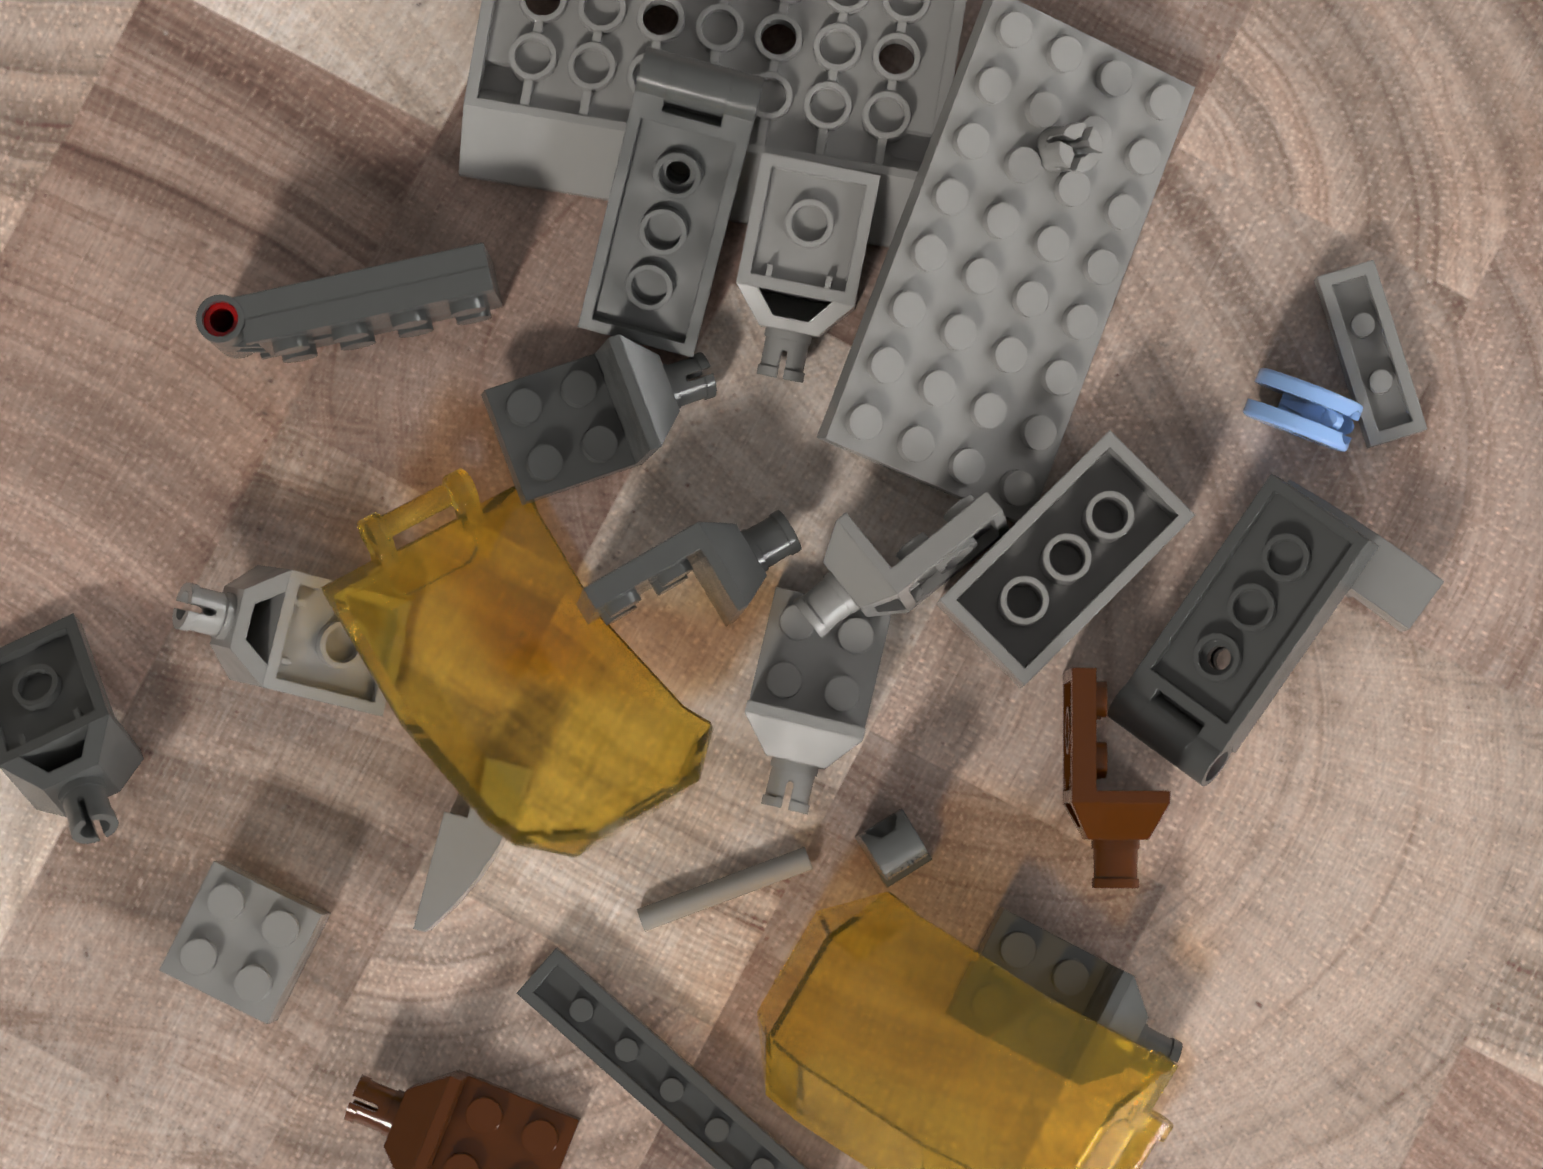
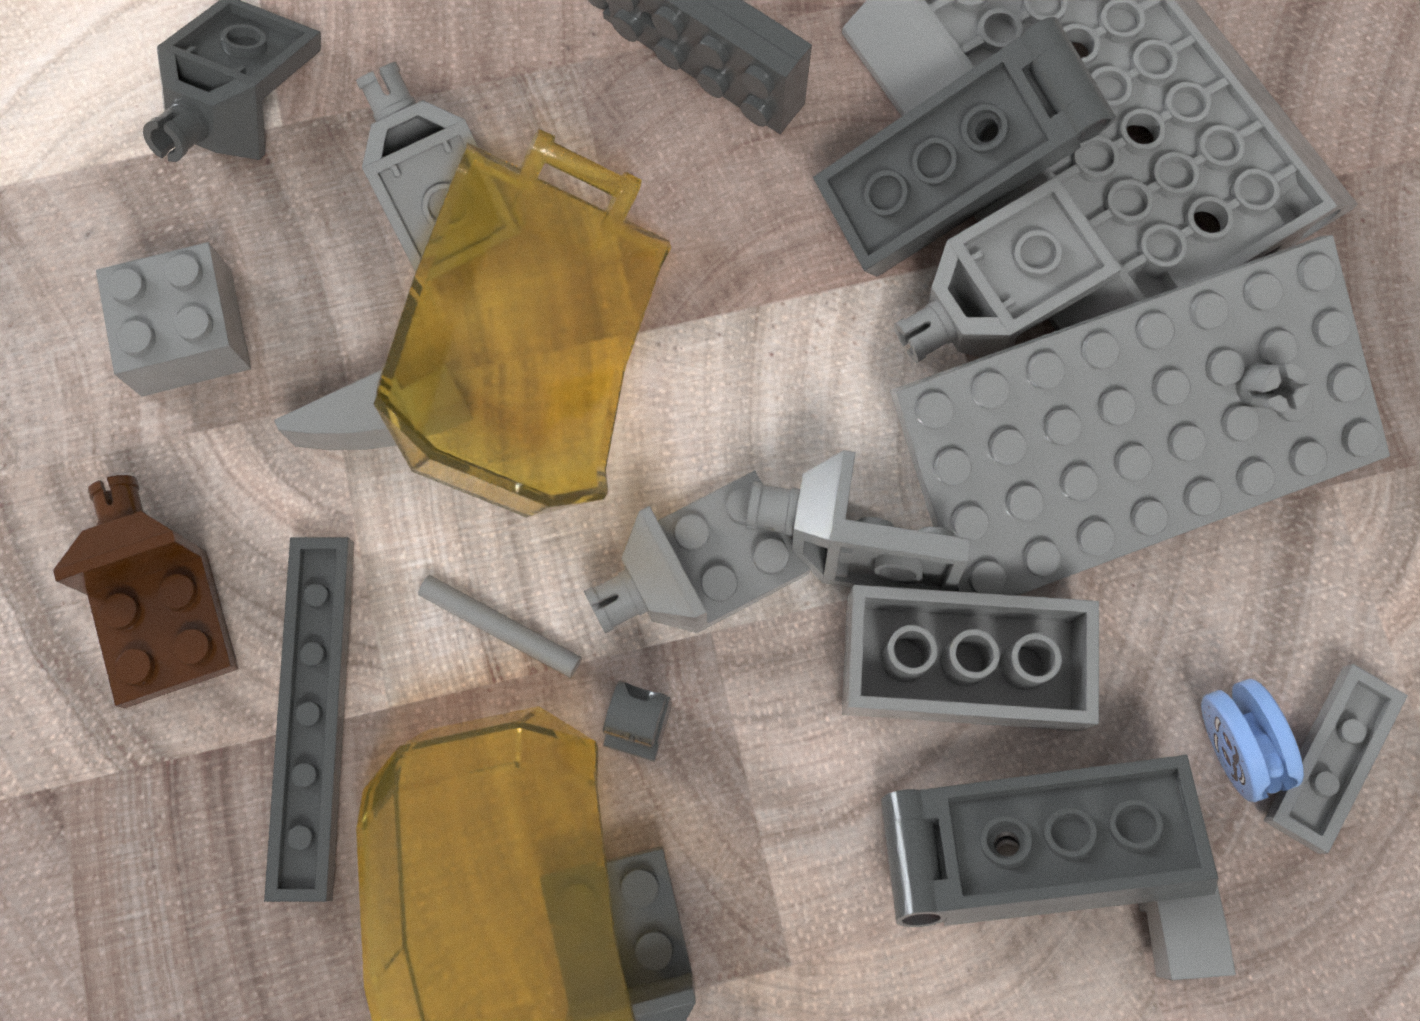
camera: 45 degrees right, 10 degrees down
(591, 415) = (760, 242): dark grey plate -> none
(722, 557) = (713, 372): dark grey plate -> none
(1108, 817) = (804, 865): reddish brown plate -> none

